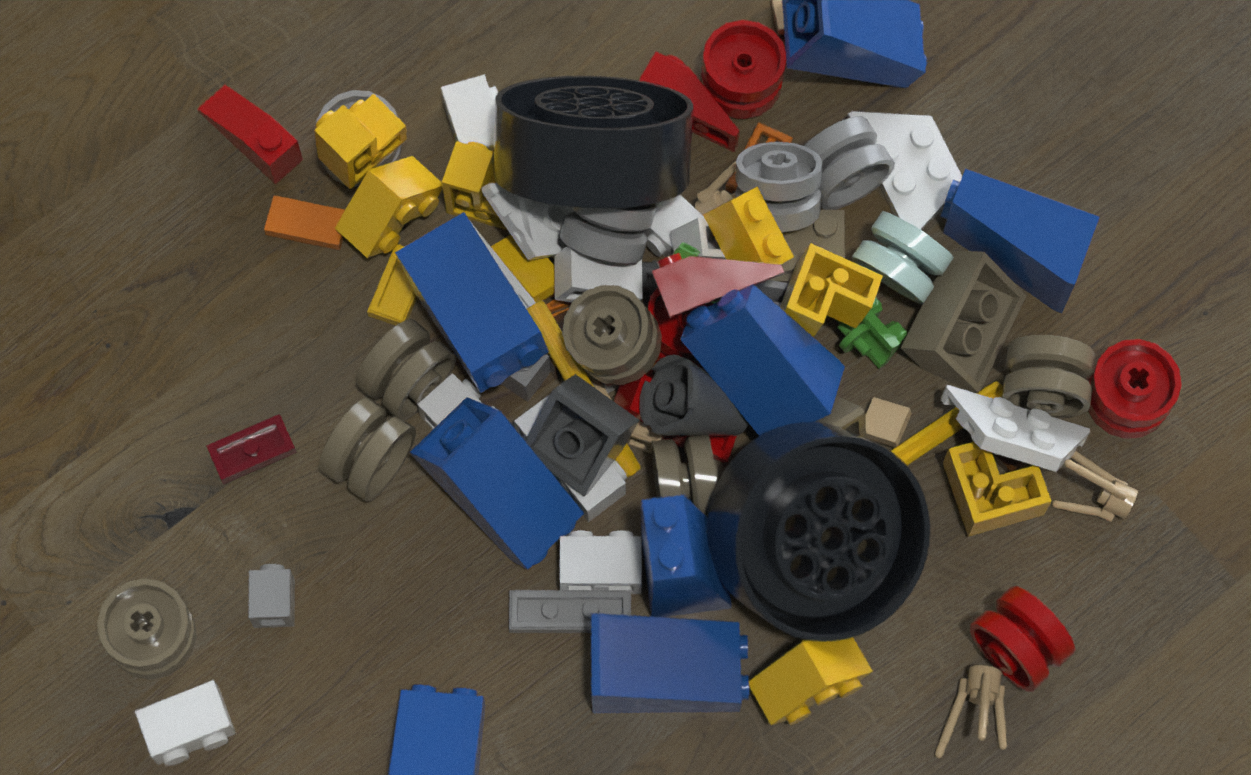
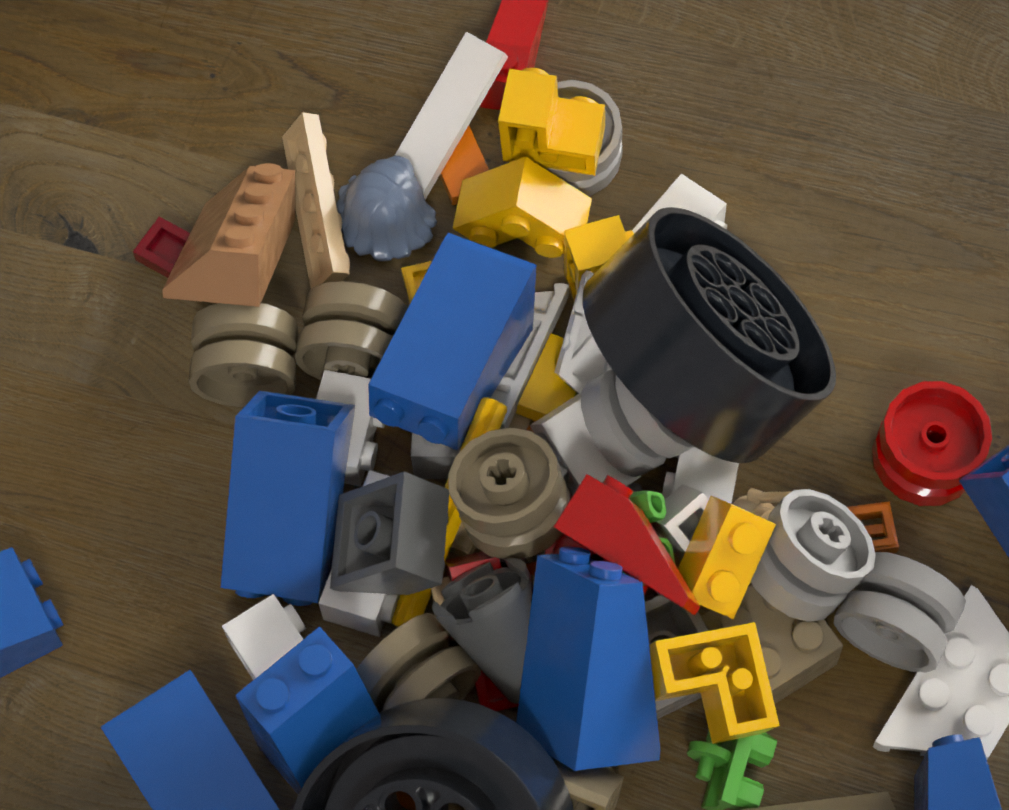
camera: 60 degrees right, 5 degrees down
(271, 597) = (43, 373): light grey brick -> none
(276, 335) = (315, 202): none -> tan plate
(278, 399) = (237, 239): none -> medium nougat slope
(283, 212) = (450, 108): none -> white tile
(316, 294) = (385, 211): none -> sand blue hair
(563, 609) = (207, 654): light grey tile -> none
(708, 116) = (856, 409): red slope -> none
(905, 253) = (832, 742): light aqua wheel -> none

